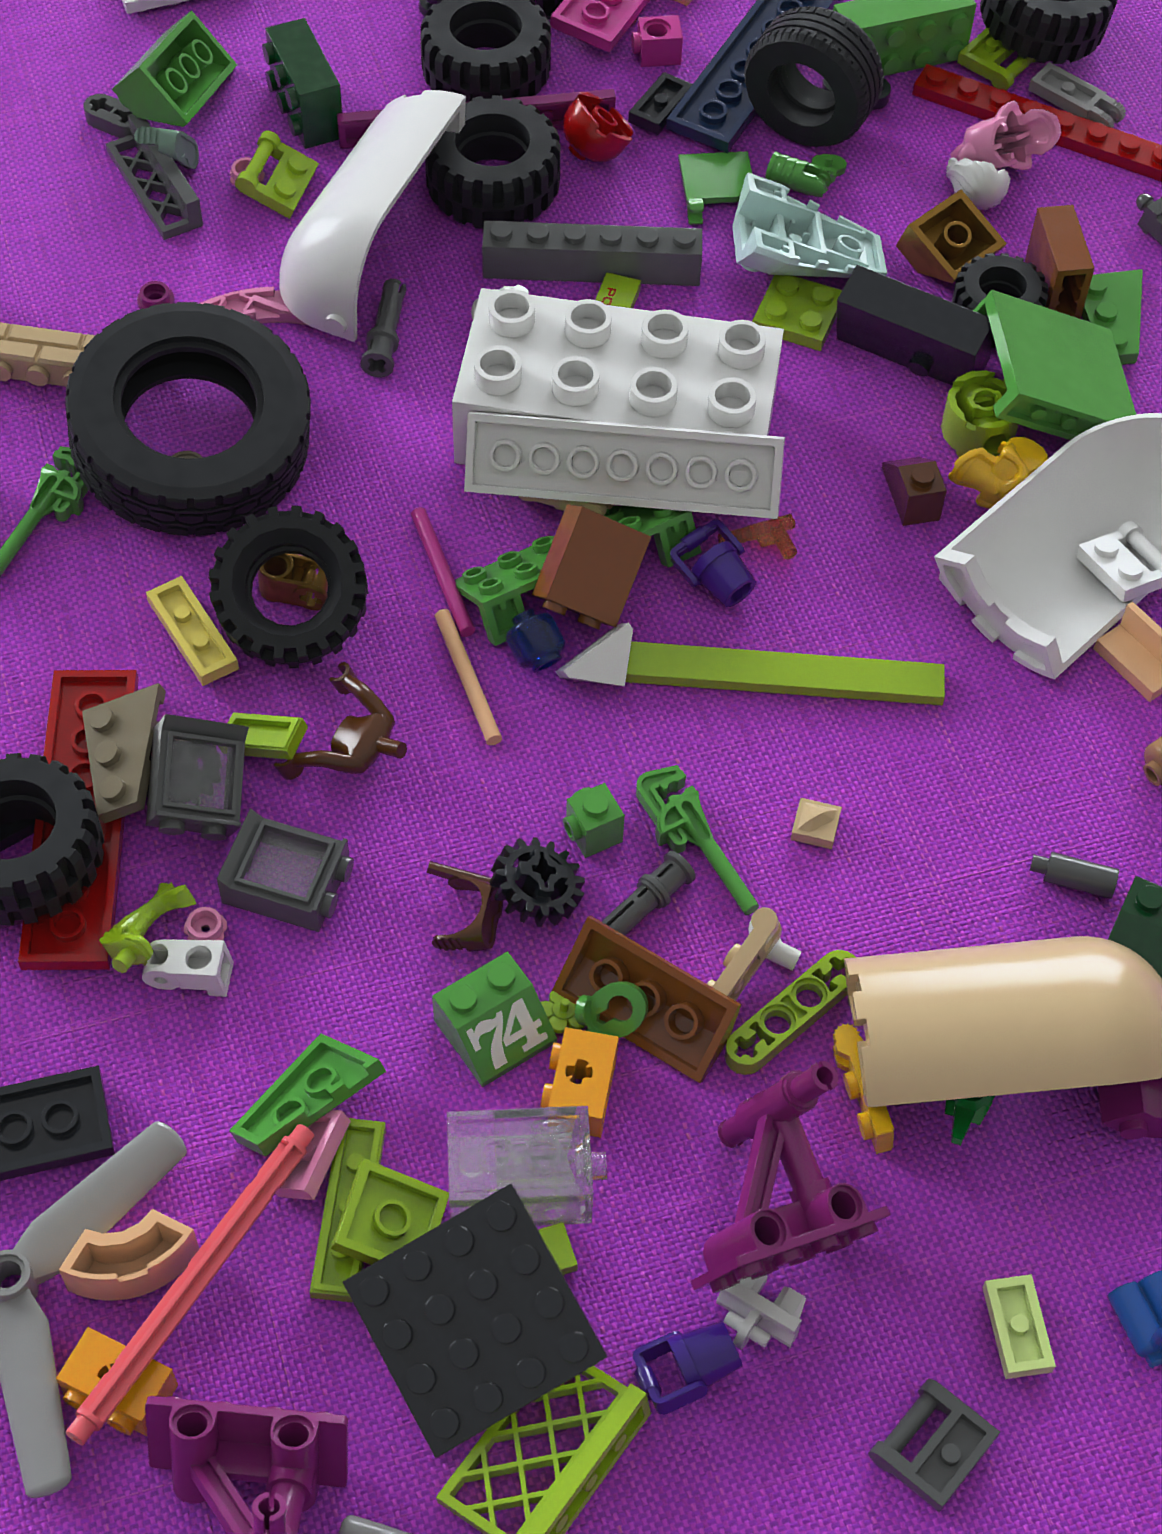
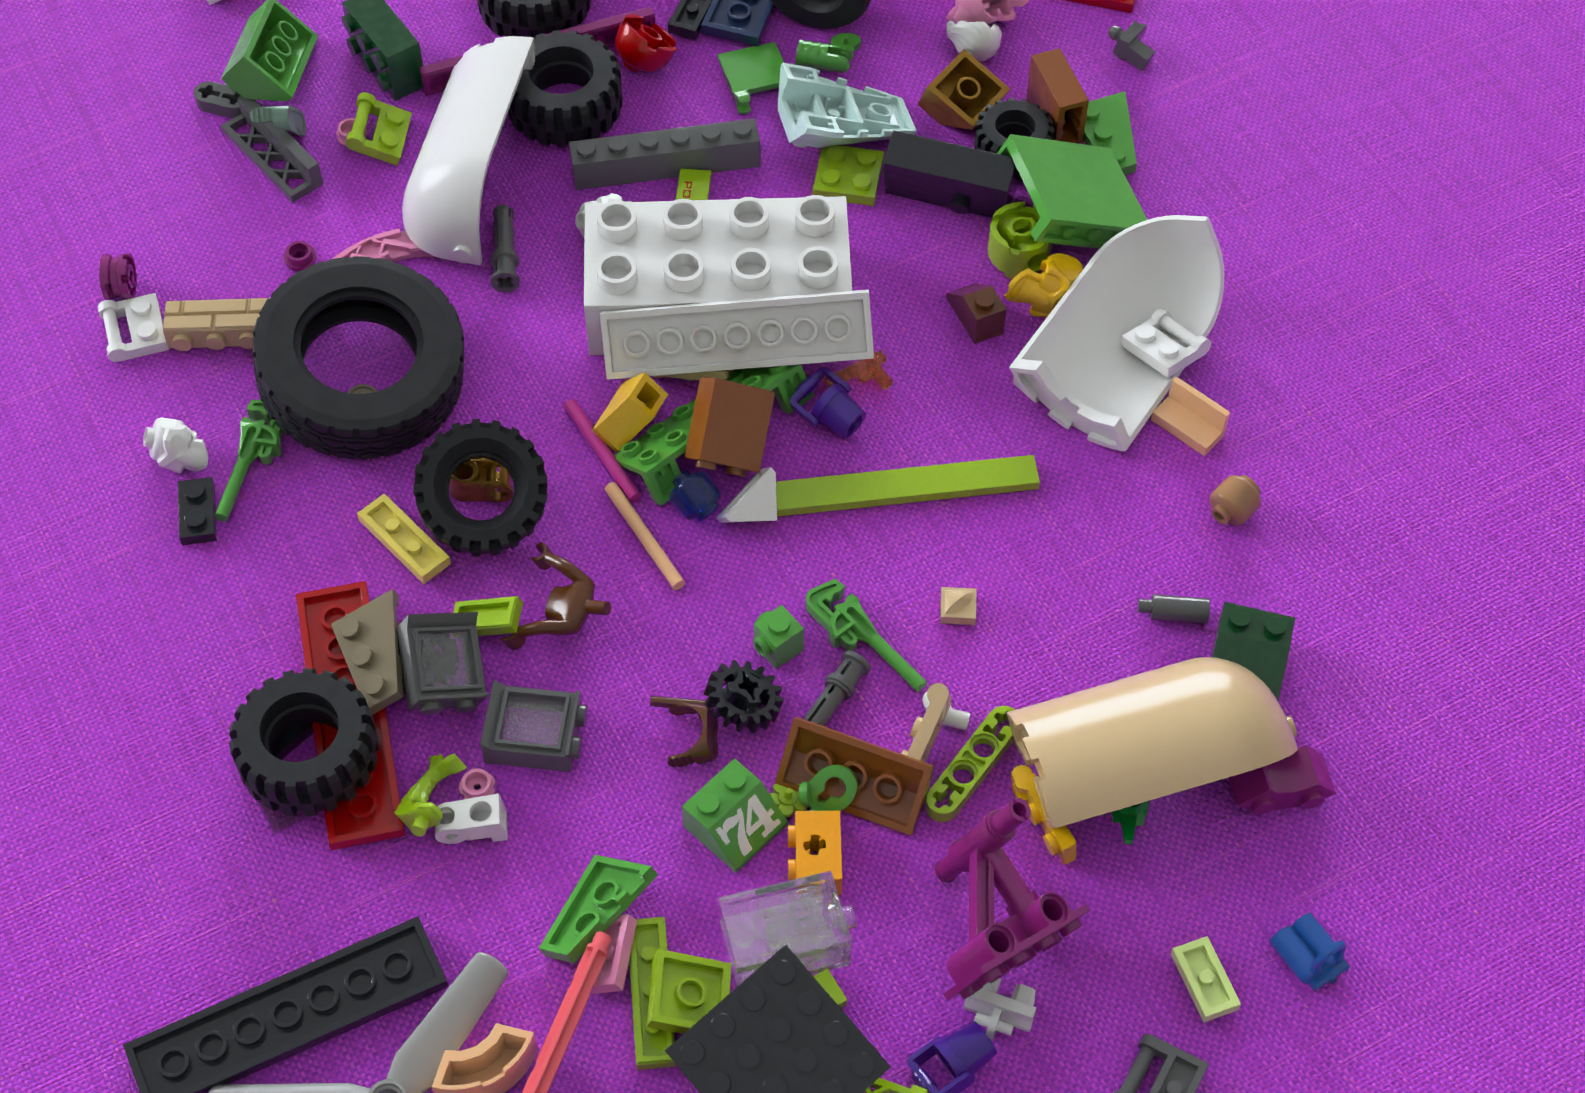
camera: 10 degrees left, 0 degrees up
(482, 531) = (629, 411): none -> yellow slope

